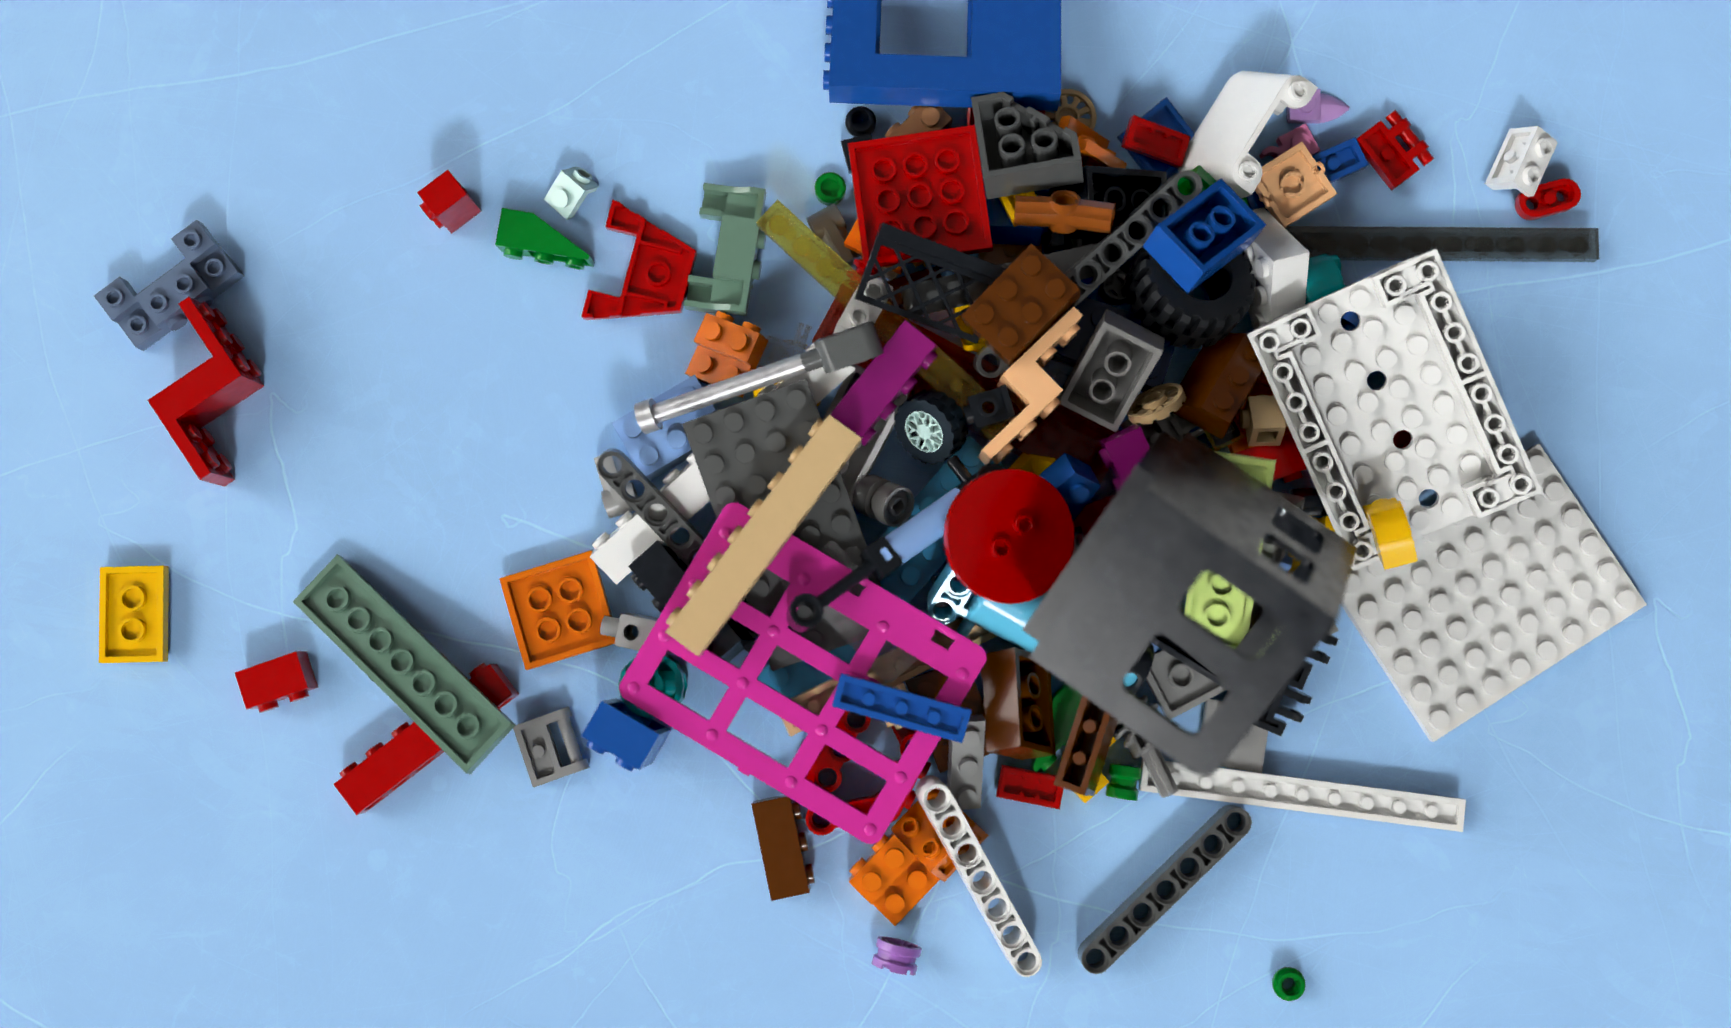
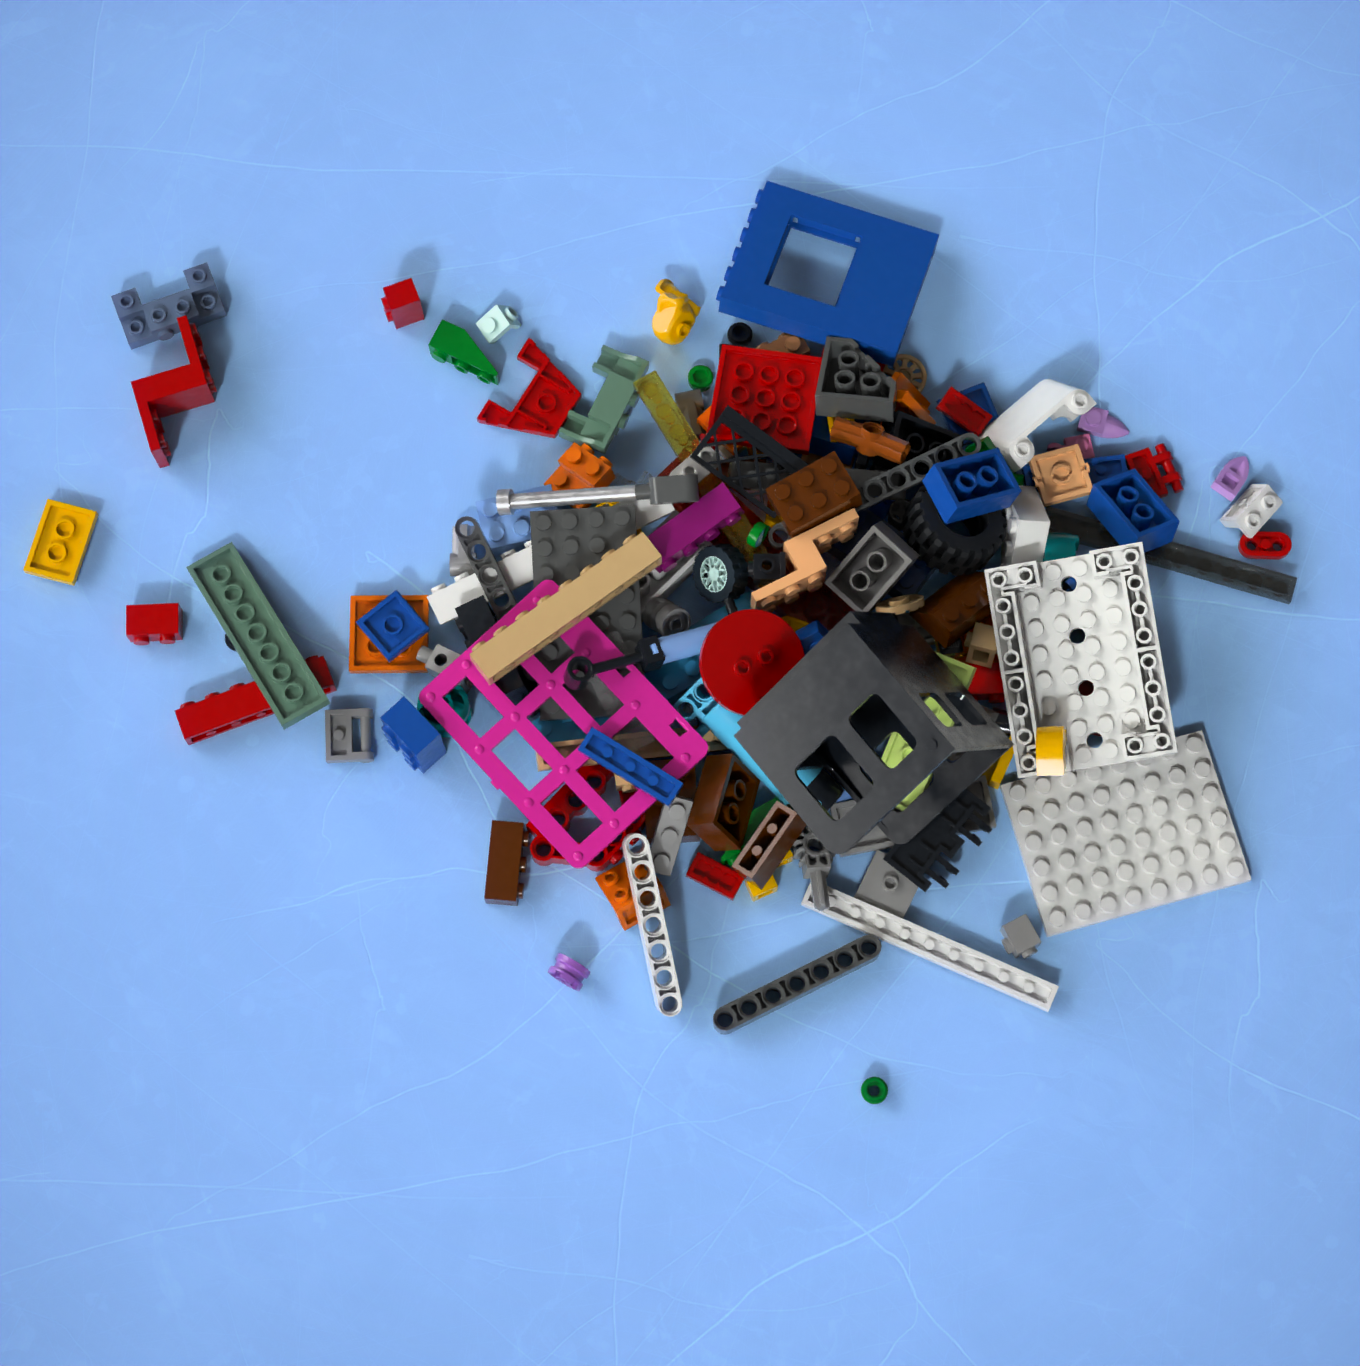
camera: 15 degrees right, 10 degrees down
(560, 603) = (392, 626): none -> blue plate
(777, 120) = (674, 314): none -> yellow head
(892, 878) = (584, 914): orange plate -> none
(963, 370) = (757, 534): none -> green tile
(1123, 782) = (790, 893): green wheel -> none
(1391, 207) = (1132, 511): none -> blue brick
(1404, 754) = (1020, 937): none -> light grey brick
(1486, 129) = (1231, 478): none -> lavender plate

